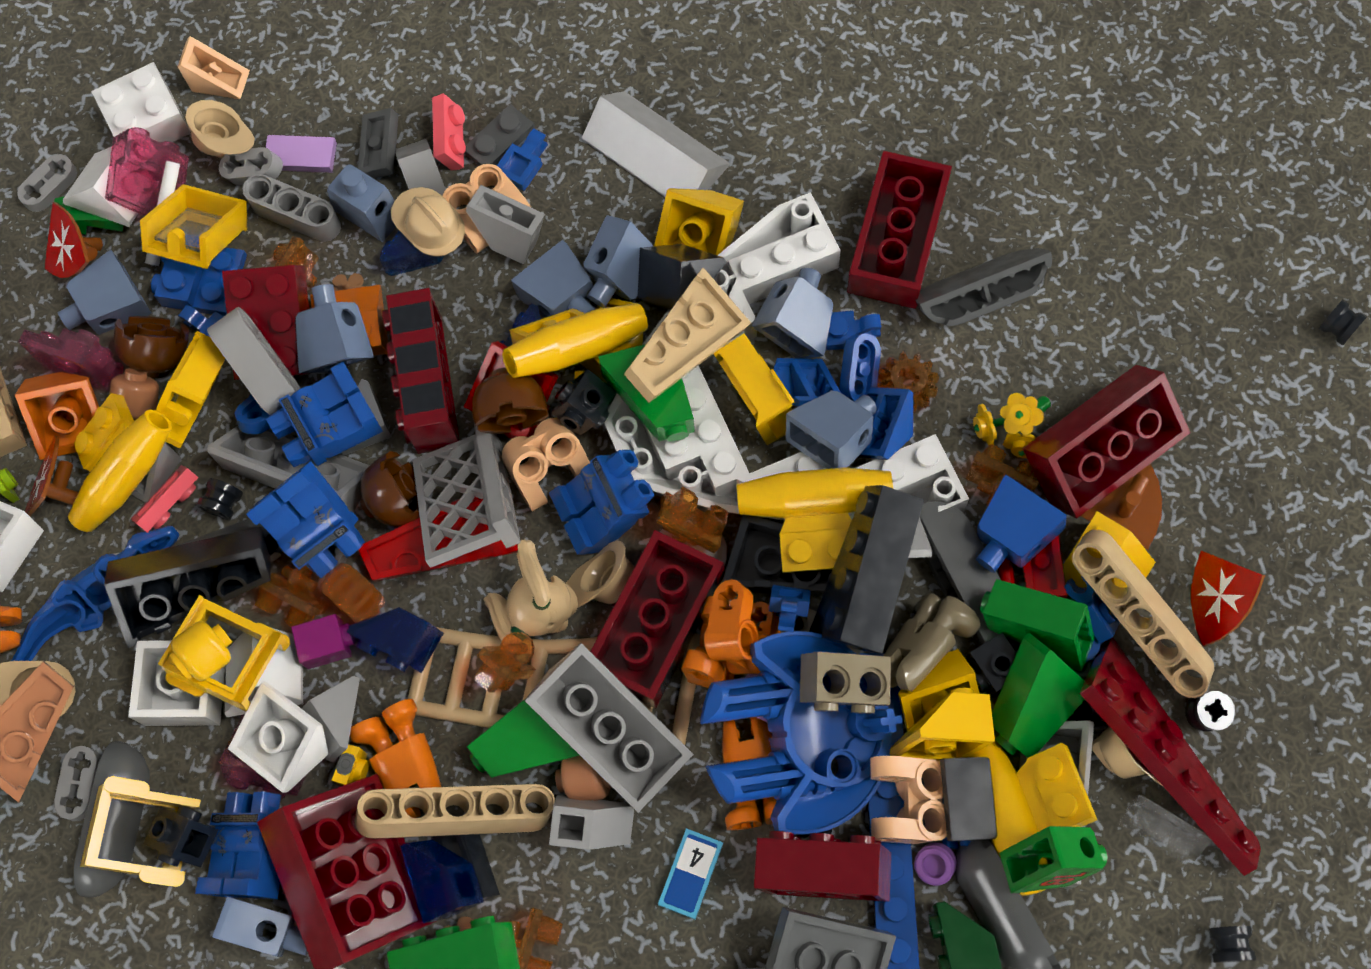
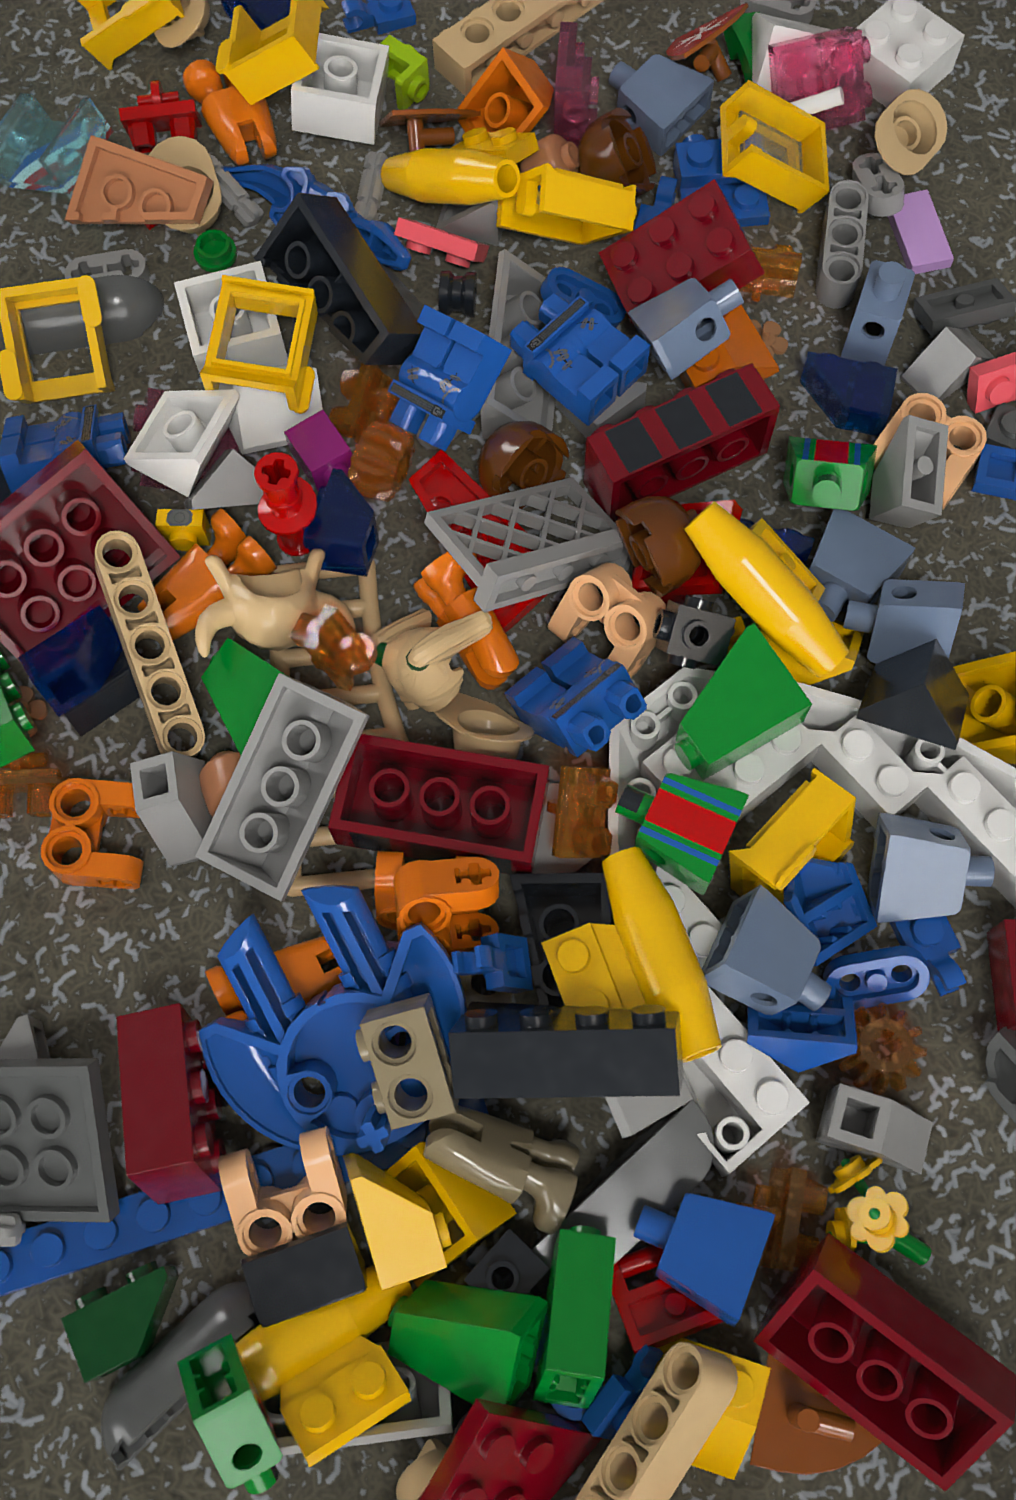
camera: 70 degrees right, 0 degrees up
(67, 649) = (236, 198): none -> light grey axle
(84, 541) = (371, 186): none -> light grey axle
(94, 686) = (214, 251): none -> green plate
(180, 836) = (58, 379): black brick -> none
(201, 650) = (241, 306): yellow head -> none
(210, 71) = (983, 101): light nougat slope -> none
(253, 359) = (621, 252): light grey beam -> none
(373, 669) = (286, 501): none -> red piece
(428, 221) = (878, 388): tan piece -> none
(451, 708) = (264, 606): none -> tan piece
(482, 278) = (828, 473): none -> green torso
(502, 569) = (443, 591): none -> orange piece
(588, 900) = (85, 831): none -> orange piece
(689, 334) = (826, 726): tan wing -> none
(690, 874) = (148, 947): tile -> none
(729, 450) = (684, 825): none -> torso
(935, 864) = (220, 1256): medium lavender tile -> none
(958, 405) = (874, 1128): none -> light grey slope

